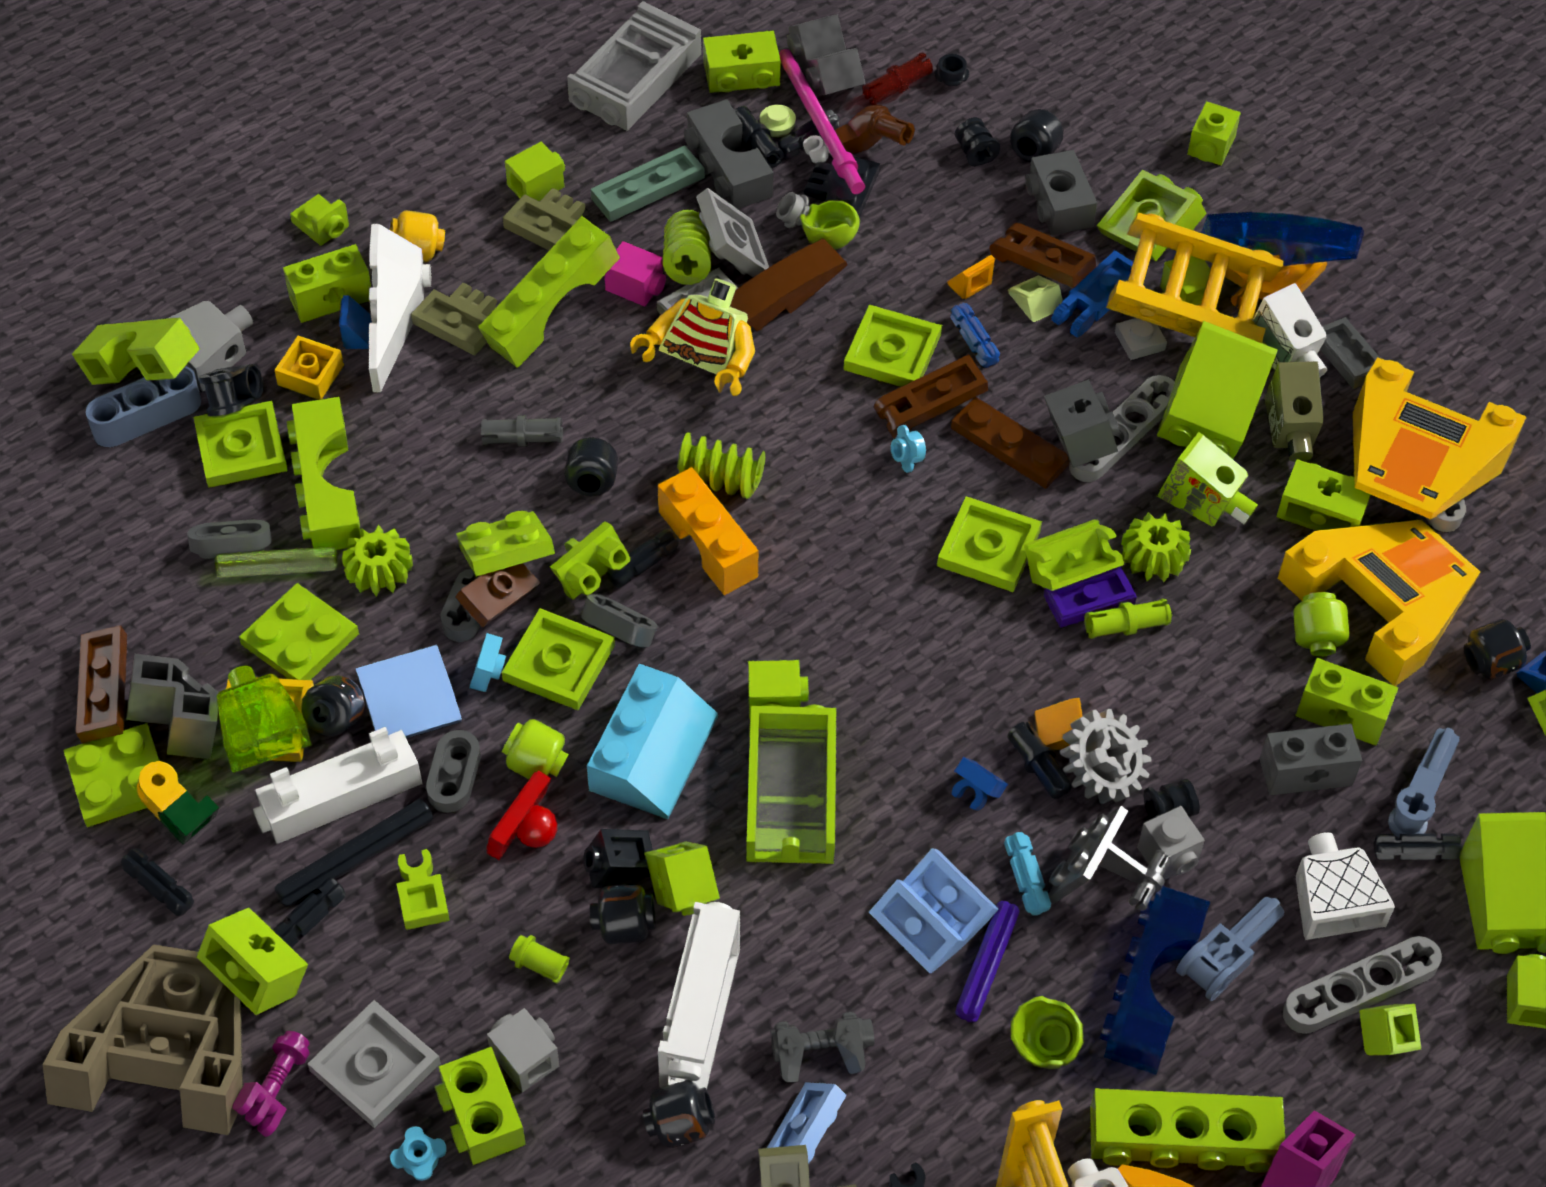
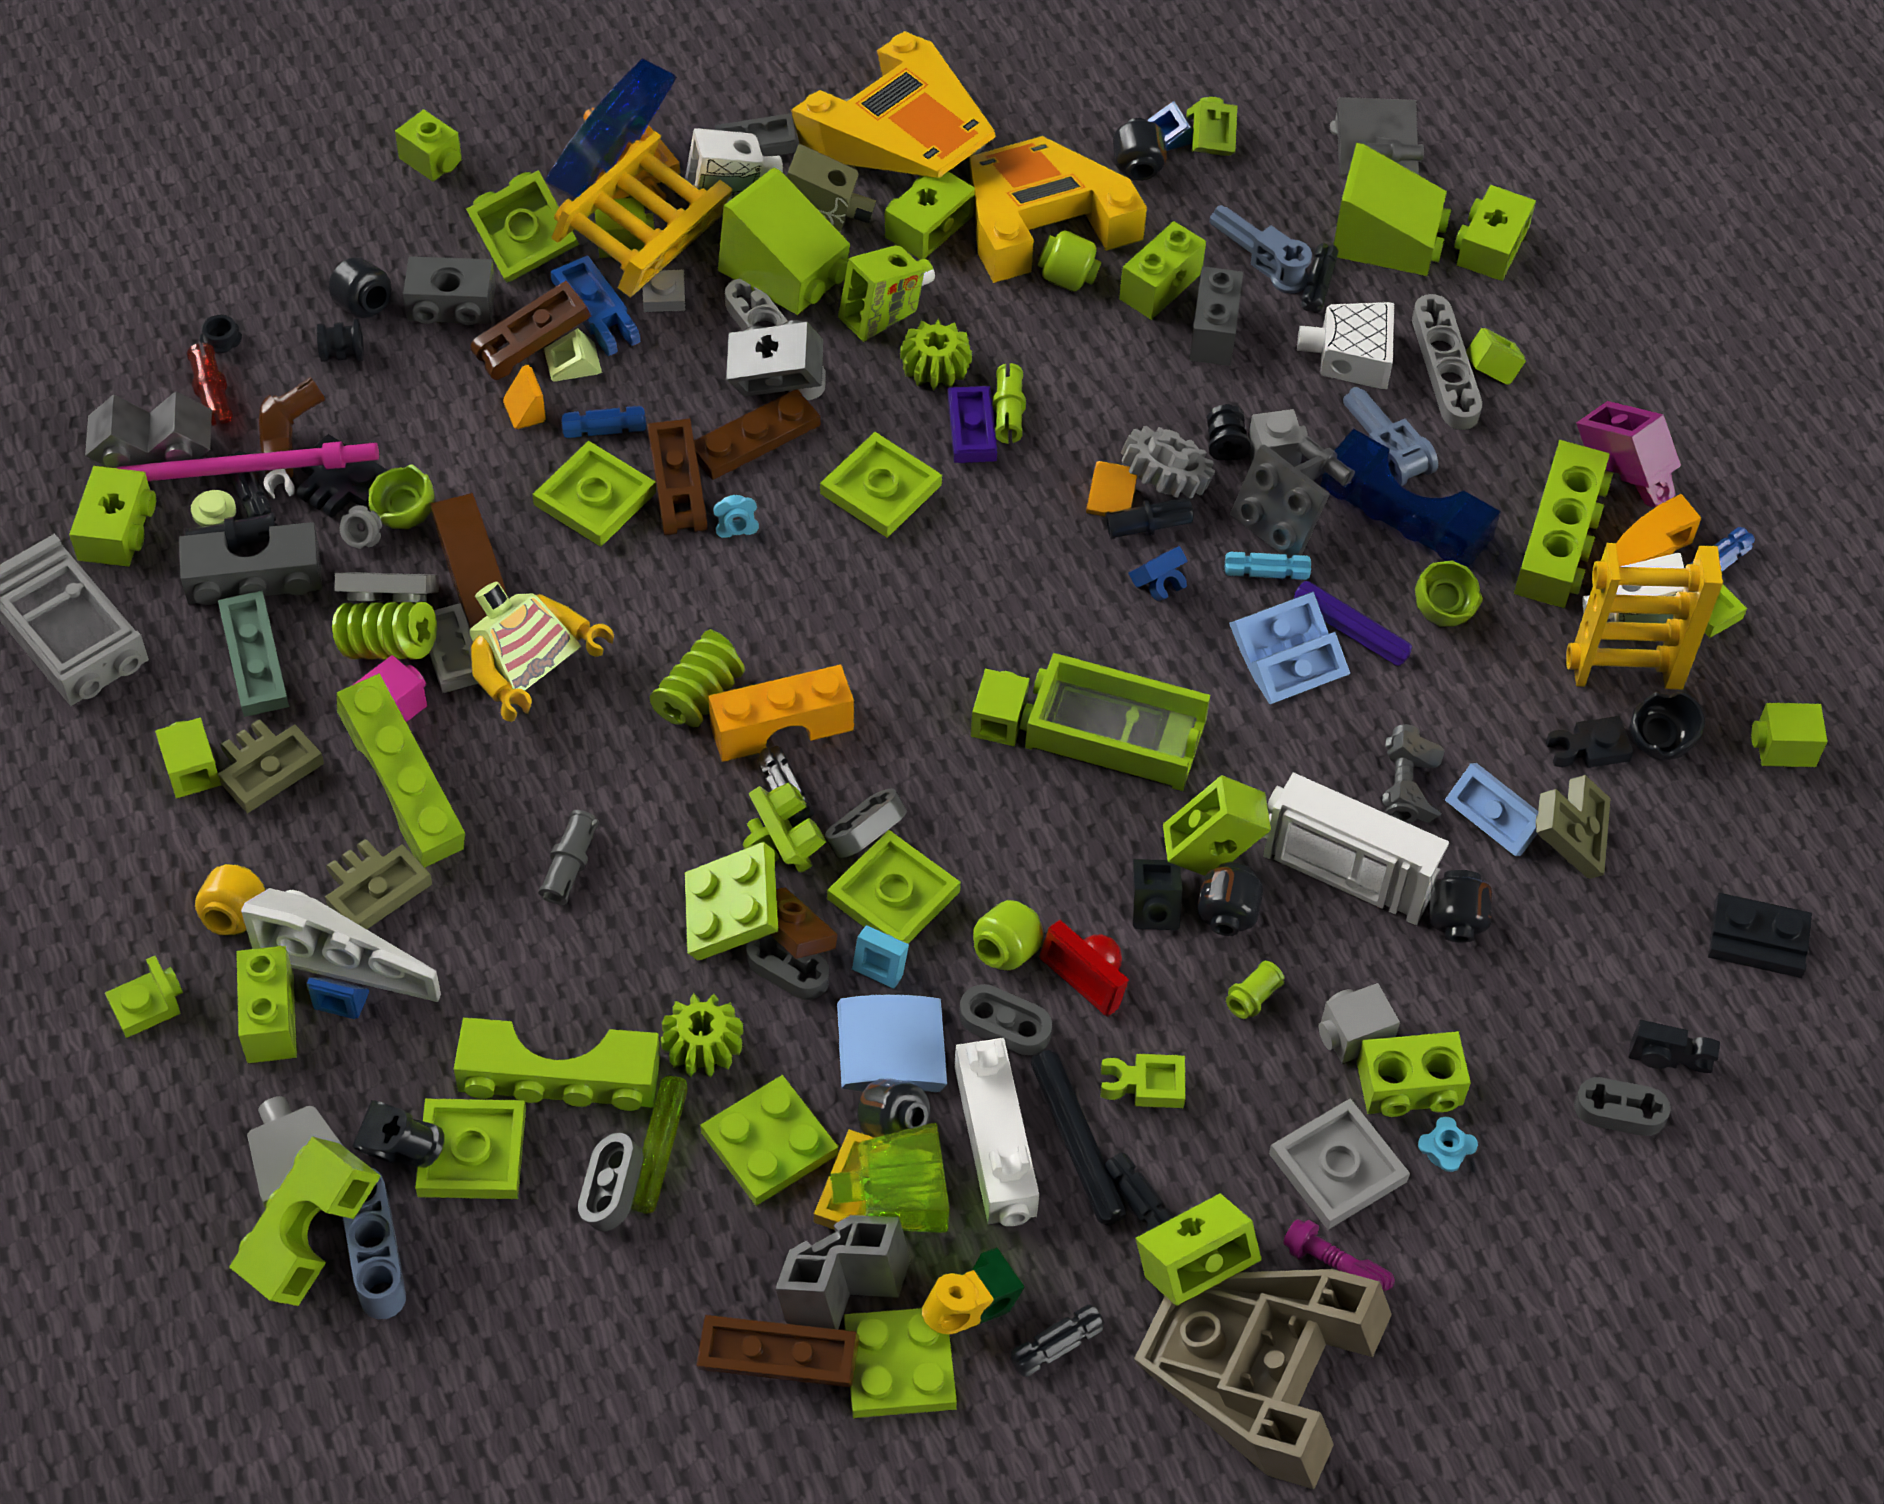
camera: 75 degrees left, 0 degrees up
(309, 367) = (385, 1053): yellow piece -> none
(591, 466) = (651, 800): black head -> none
(651, 742) = (1026, 834): medium azure slope -> none
(1072, 555) = (929, 418): lime hinge -> none

